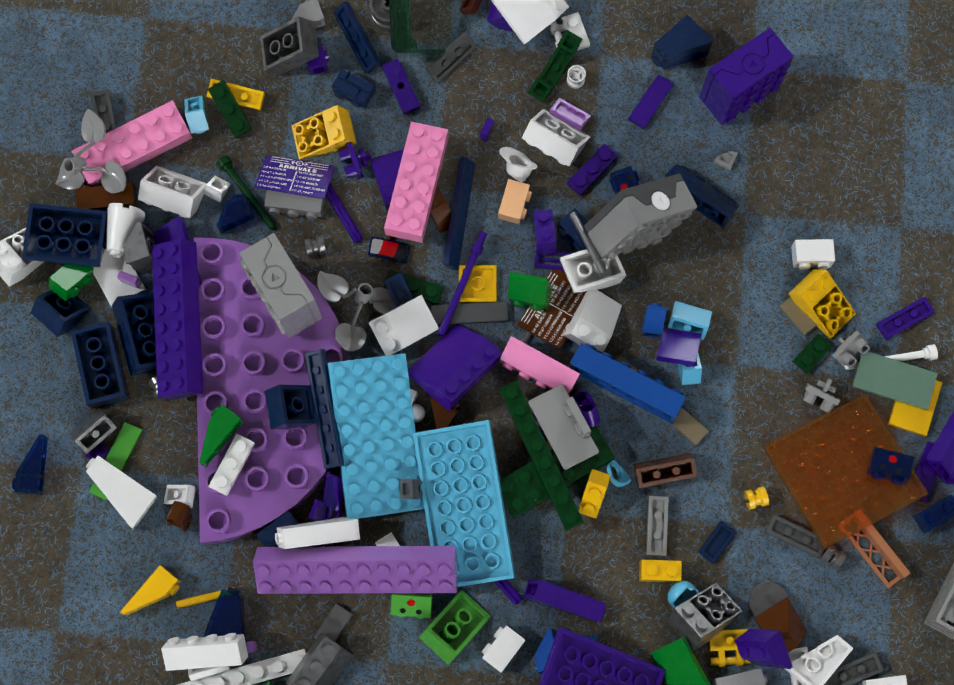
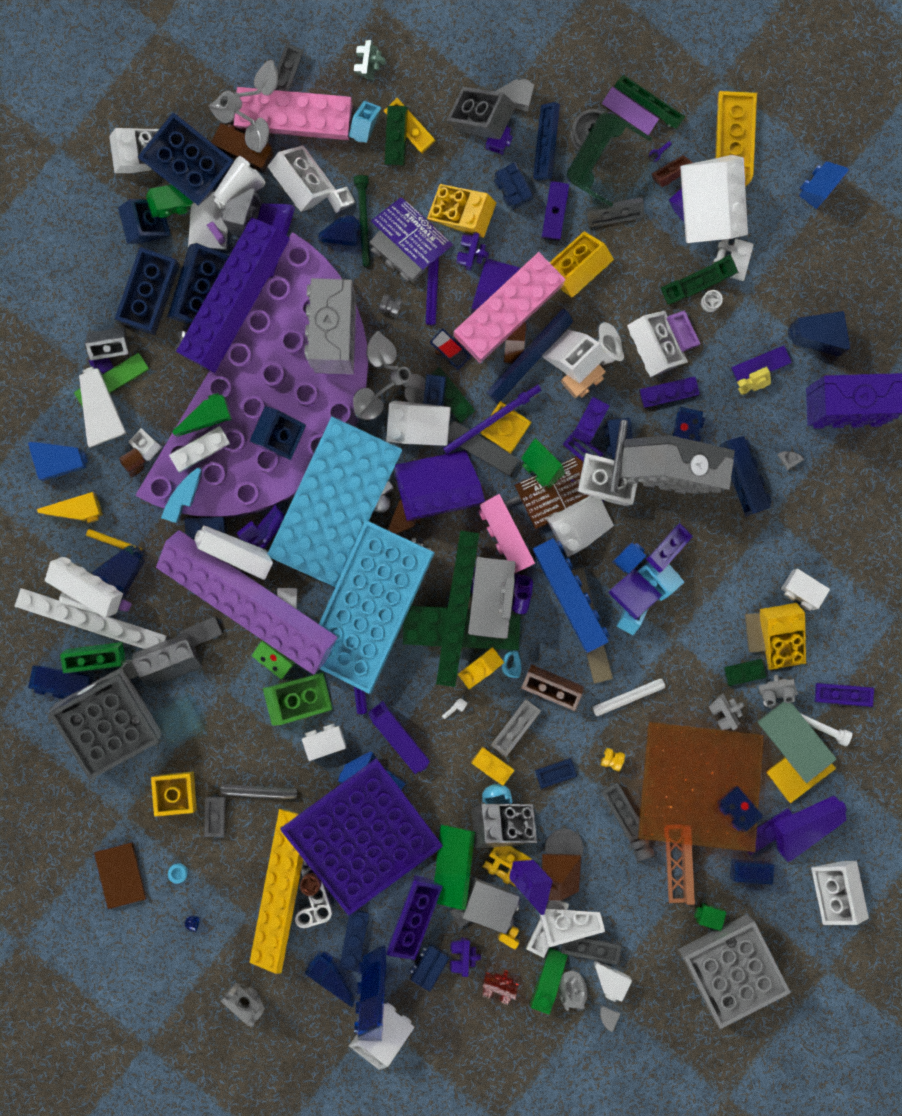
camera: 30 degrees right, 10 degrees up
(31, 473) = (37, 345): clear blue slope -> none
(110, 559) = (56, 460): none -> blue slope
(171, 64) = (371, 60): none -> sand green hips
(242, 514) = (182, 496): none -> medium azure slope
(324, 410) = (304, 452): dark blue tile -> none
(410, 488) = (332, 564): flat silver tile -> none
(451, 111) = (581, 262): none -> yellow slope
(487, 129) = (603, 297): dark purple tile -> none
(496, 186) = (575, 354): none -> white slope
(597, 538) = (460, 704): none -> white hand
(656, 114) = (756, 381): none -> light yellow plate
(680, 291) = (669, 548): none -> dark purple plate
(732, 438) = (628, 697): none -> white axle
(930, 575) = (710, 916): none -> green brick

